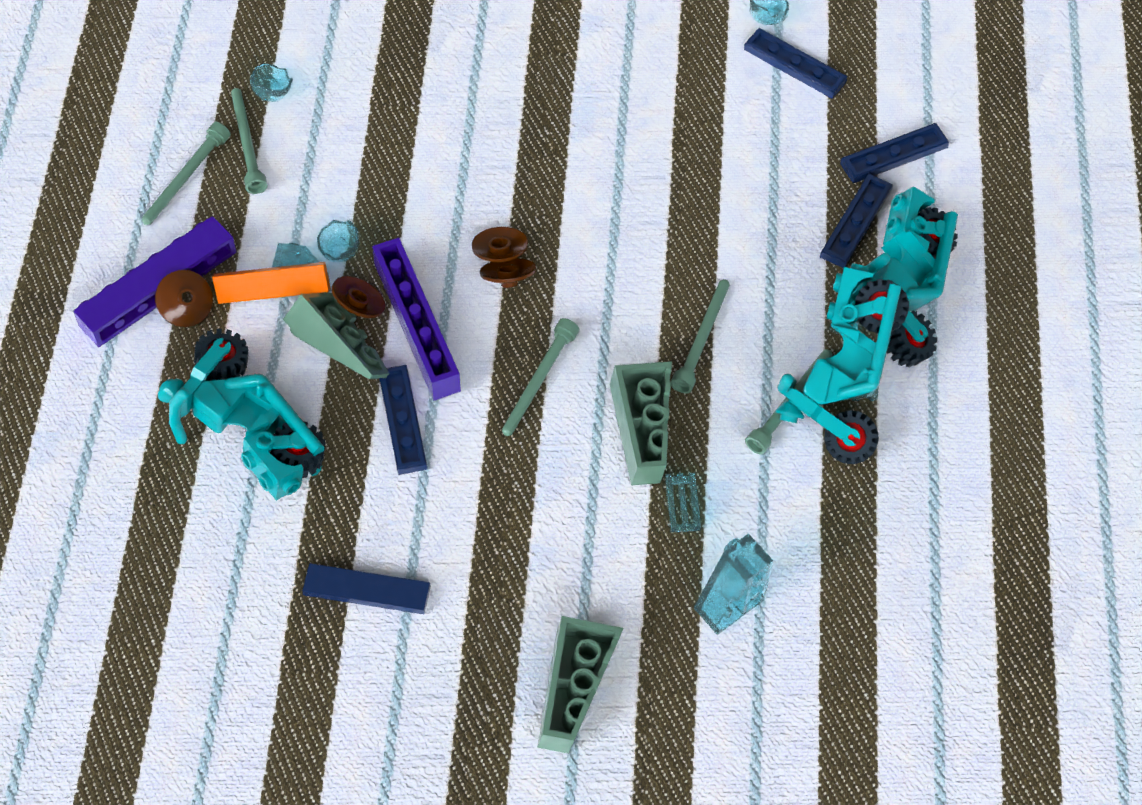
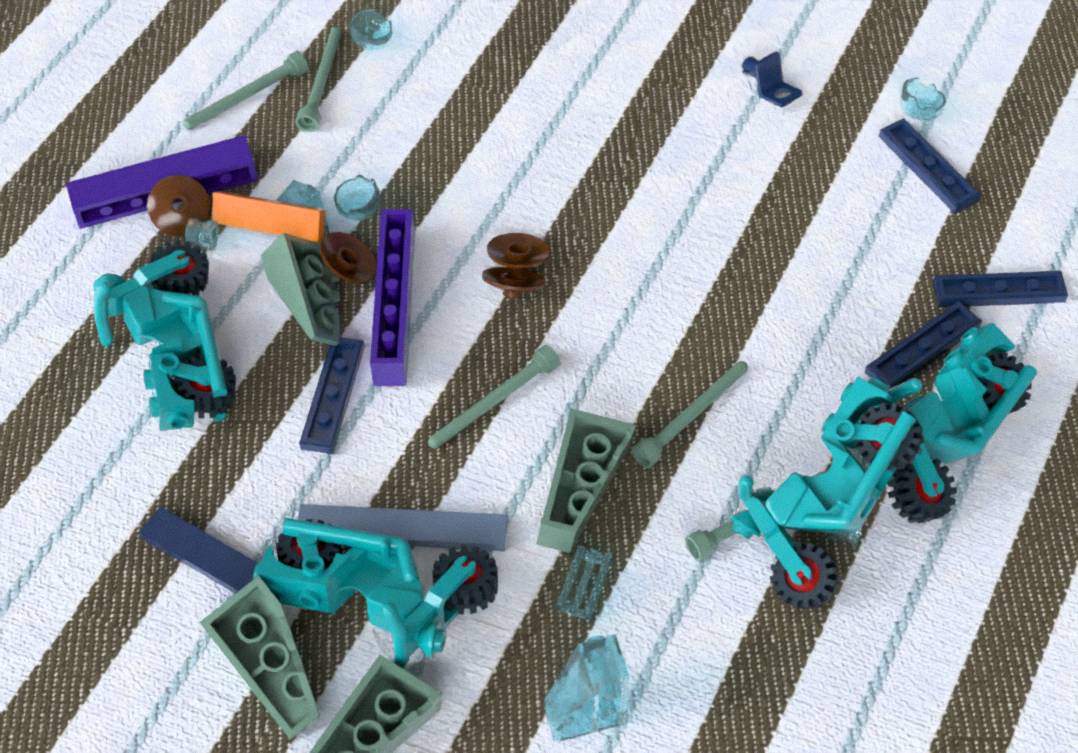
camera: 25 degrees right, 5 degrees down
(217, 316) = (202, 233): none -> clear light blue wheel
(459, 646) = (261, 647): none -> sand green wedge
(471, 573) = (381, 567): none -> teal piece
(516, 510) = (418, 527): none -> sand blue tile
(636, 26) = (770, 79): none -> dark blue bracket

